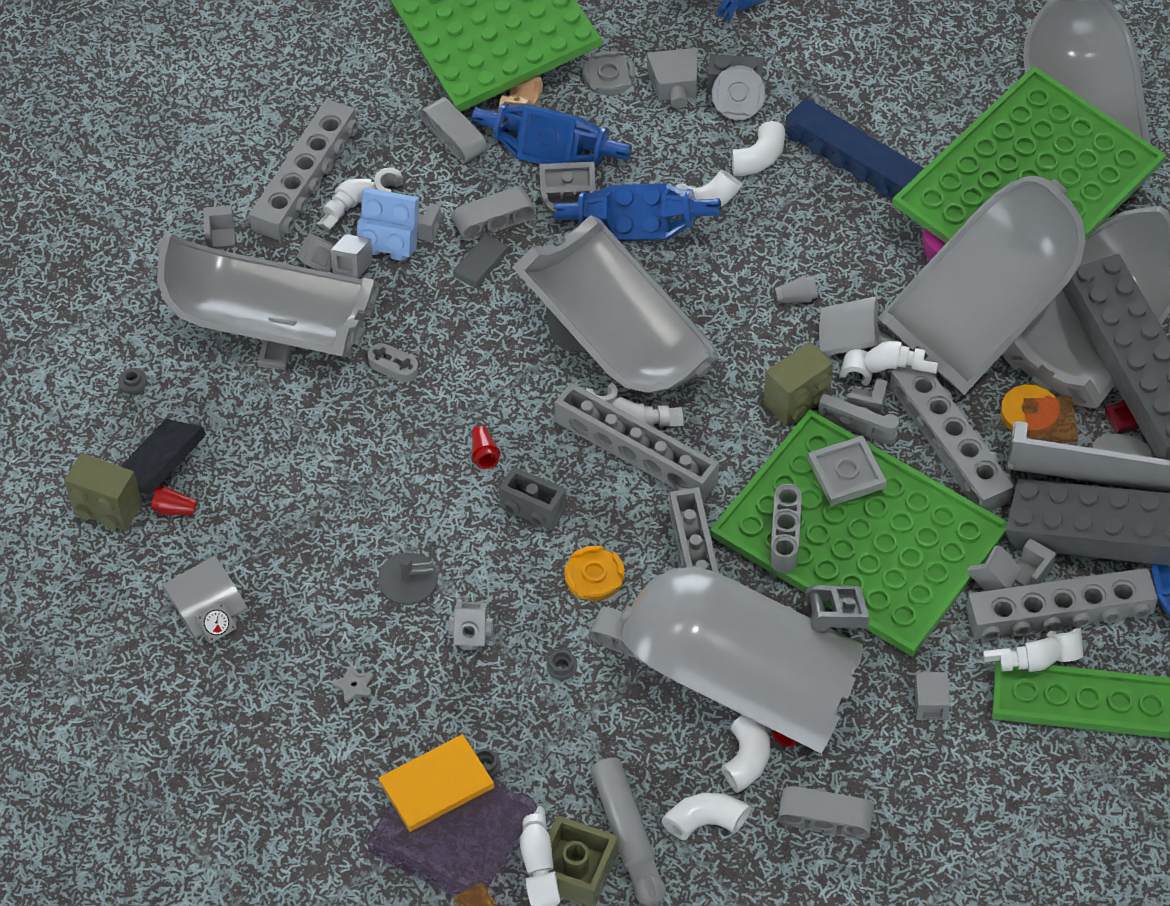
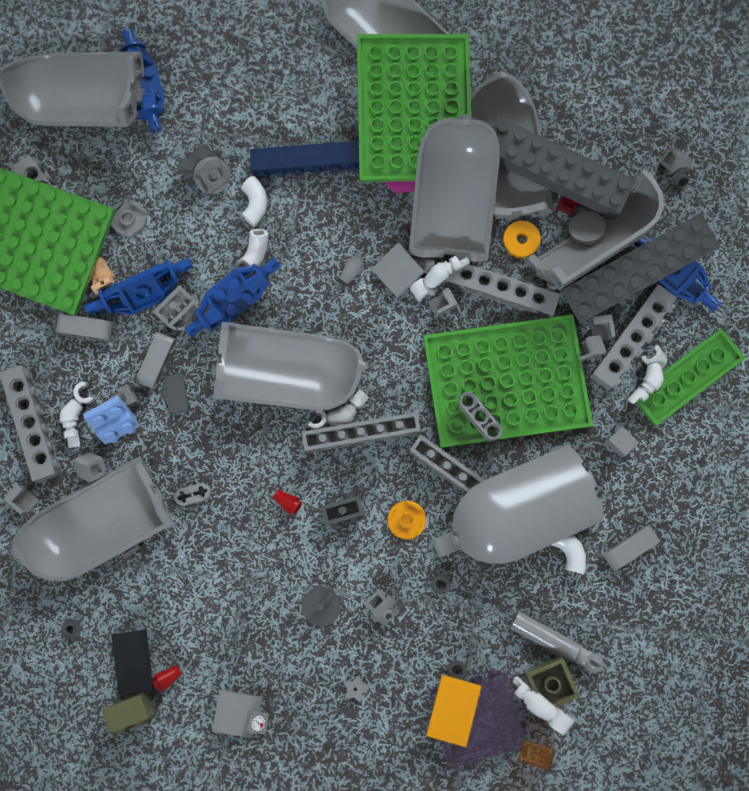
camera: 45 degrees left, 25 degrees up
(351, 256) = (110, 454): light grey panel -> none
(674, 75) = (166, 191): light grey torso -> none
(703, 810) = (579, 597): white cylinder -> none
(797, 383) = (408, 328): olive brick -> none
(846, 470) = (476, 356): light grey plate -> none
(846, 603) = (549, 435): dark grey plate -> none
(859, 419) = (450, 318): light grey plate -> none
(1050, 419) = (538, 237): clear orange piece -> none

